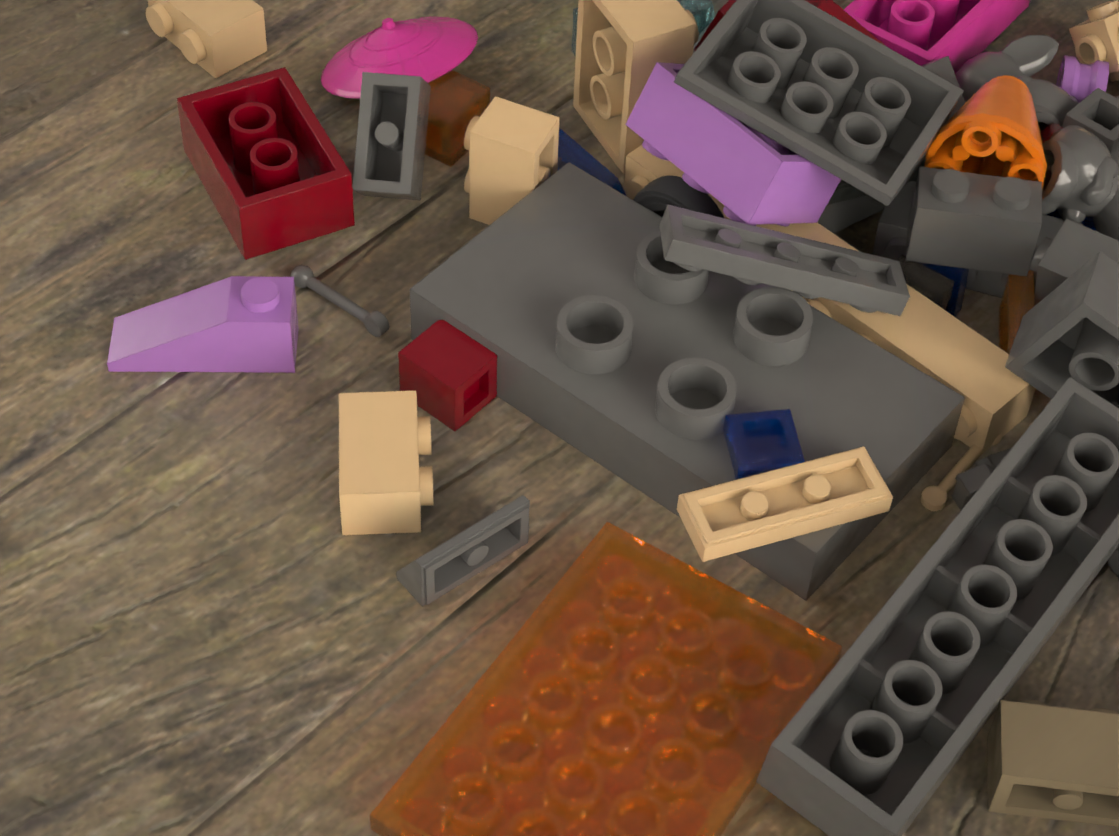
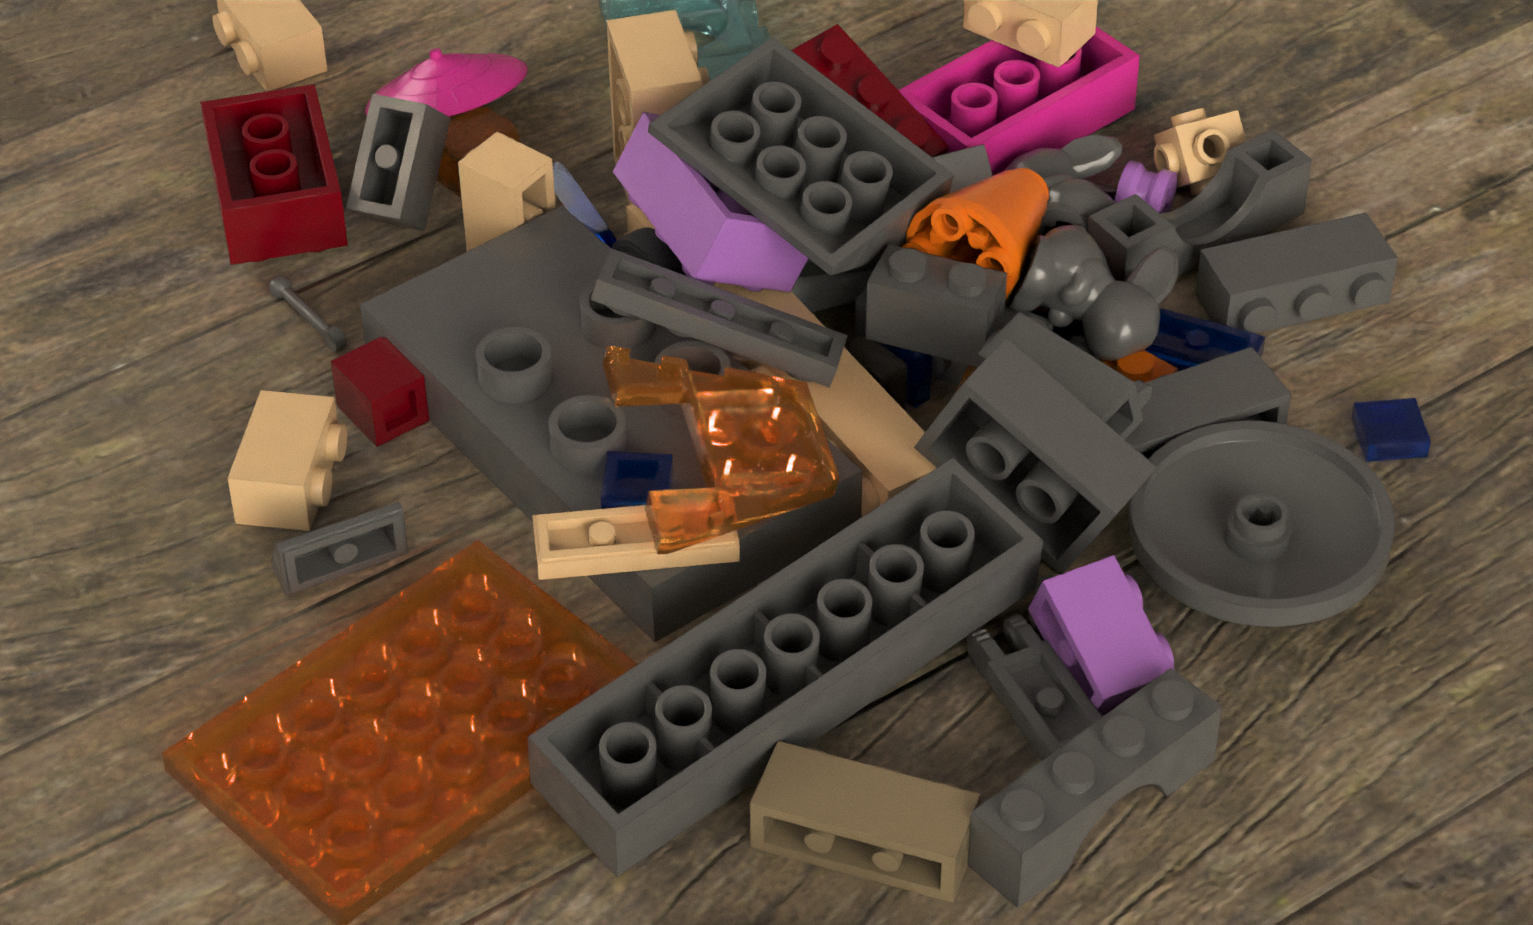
camera: 15 degrees right, 5 degrees down
(214, 328) = (178, 322): medium lavender slope -> none
(863, 380) = (751, 437): none -> clear orange wing

